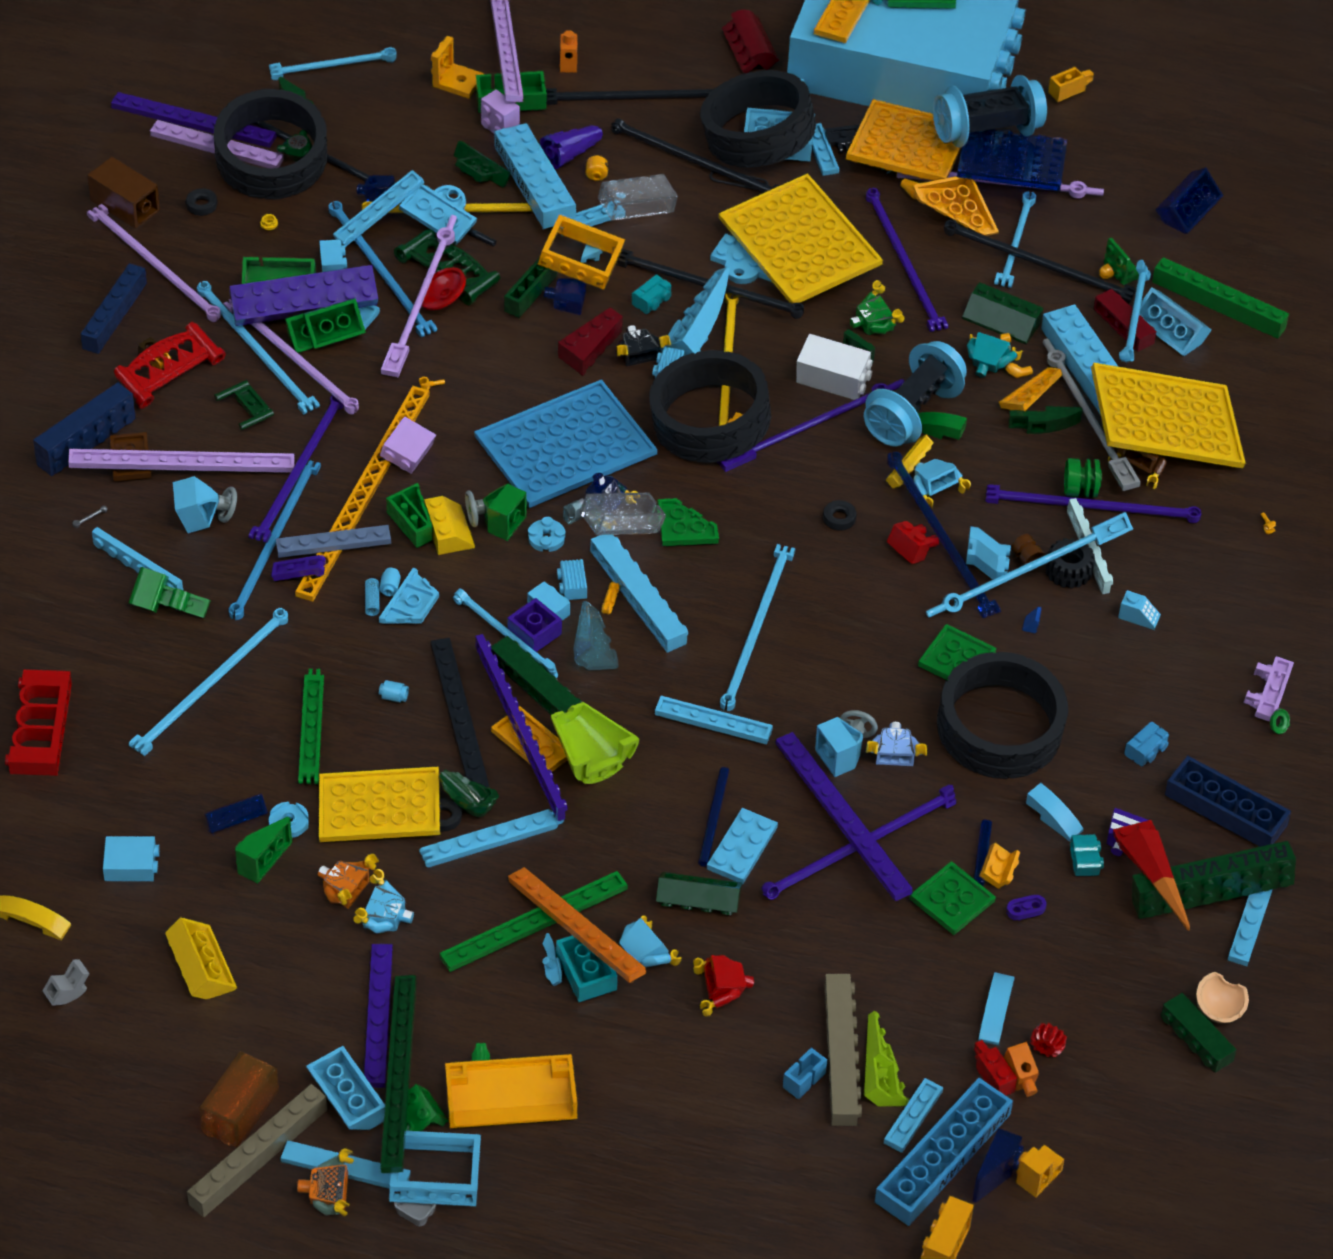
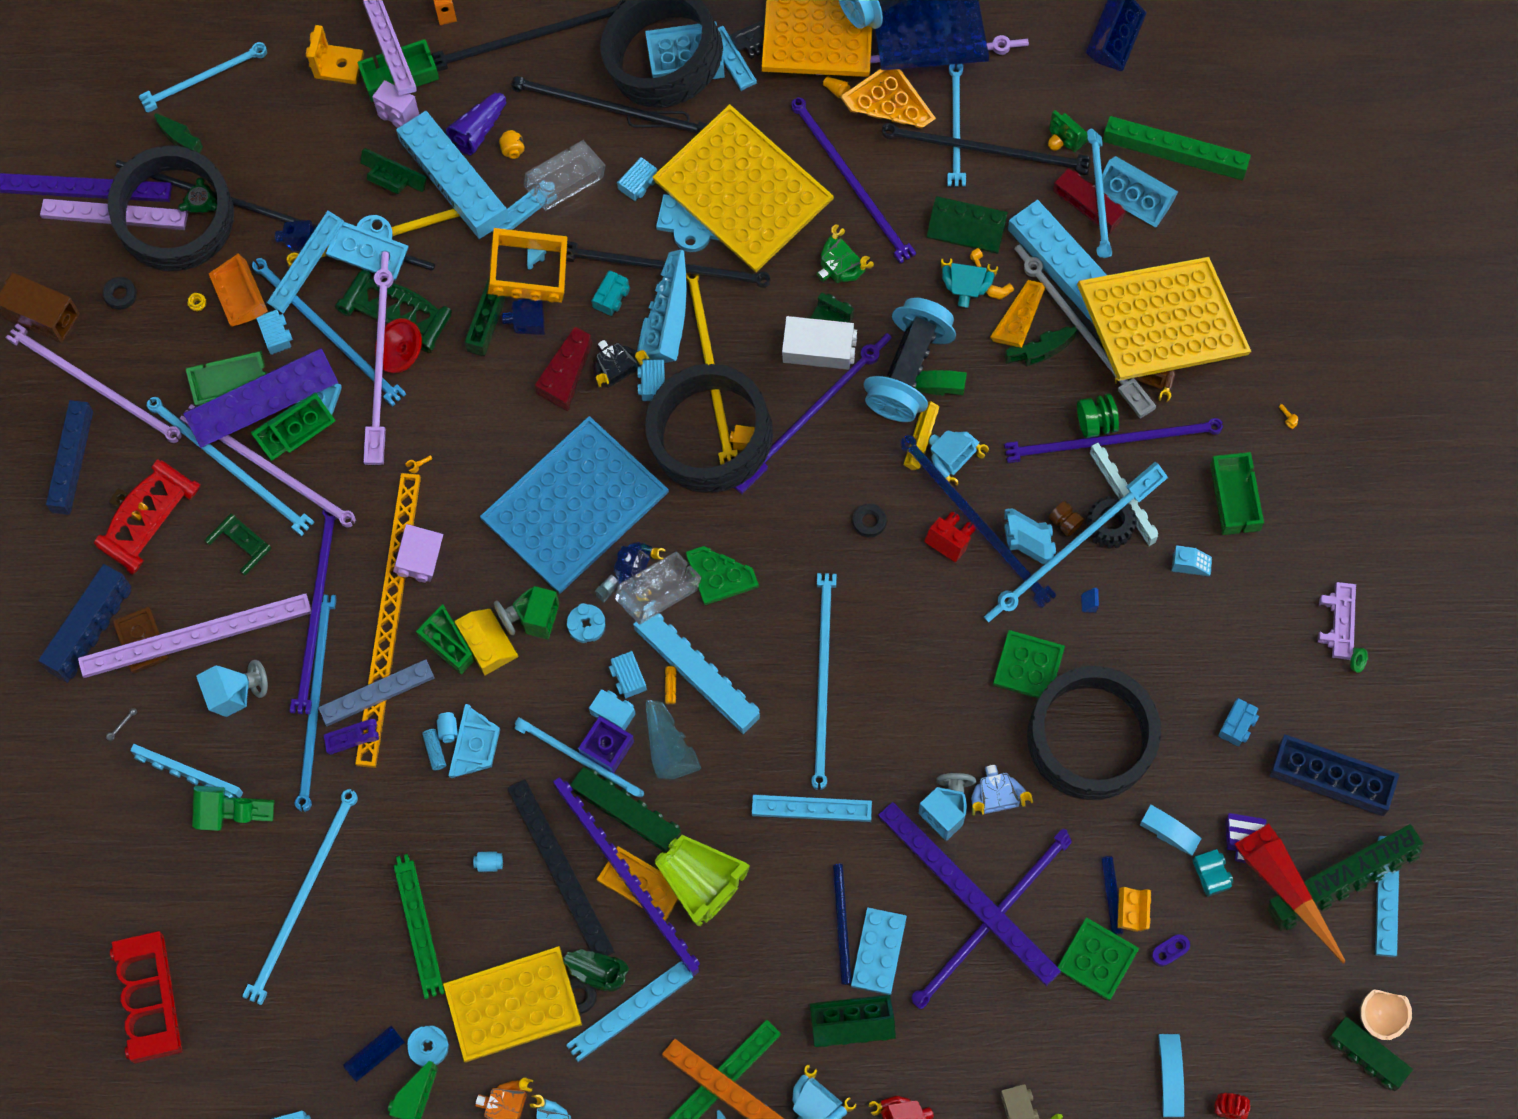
camera: 10 degrees left, 20 degrees up
(309, 219) = (238, 291): none -> orange slope
(703, 217) = (637, 179): none -> medium azure brick
(1198, 566) = (1236, 493): none -> green piece

